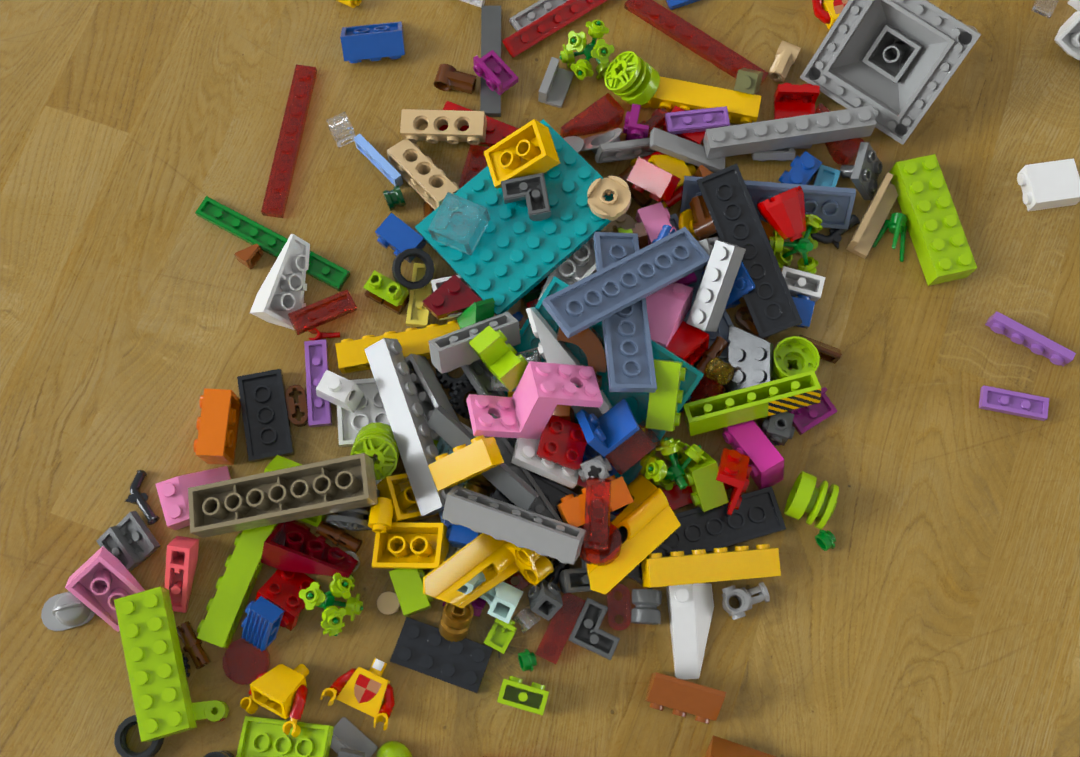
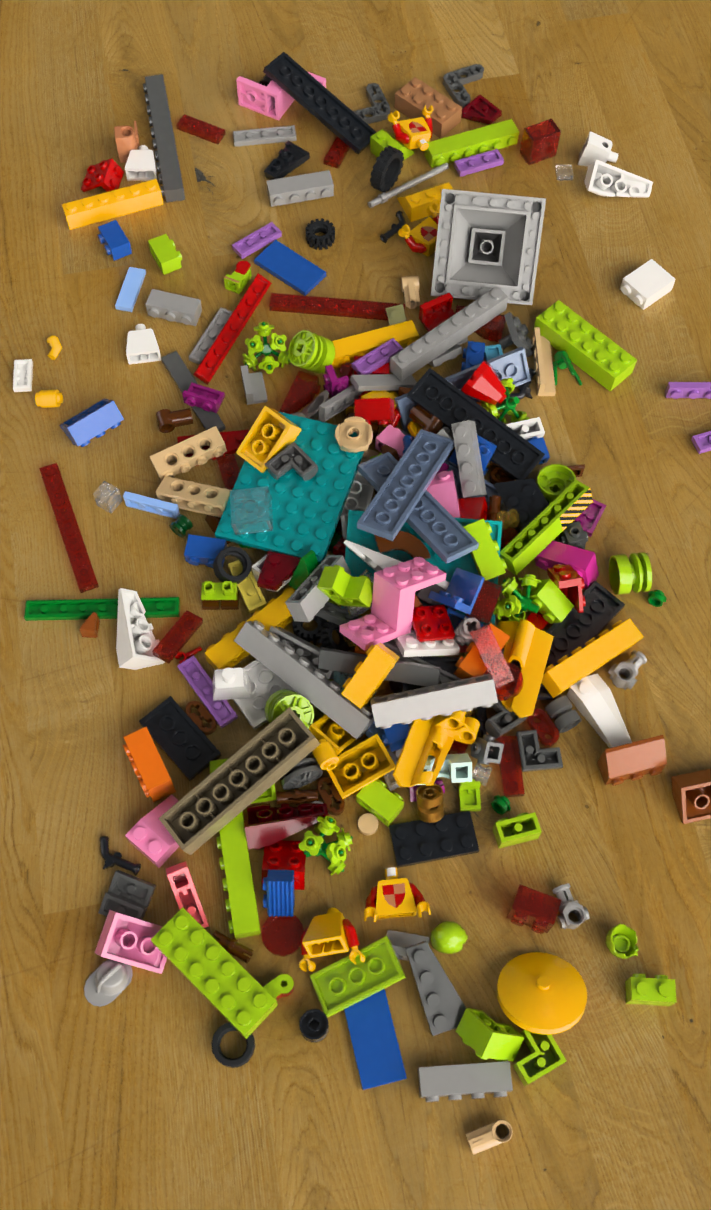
camera: 30 degrees left, 10 degrees down
(365, 554) = (327, 798): none -> reddish brown beam

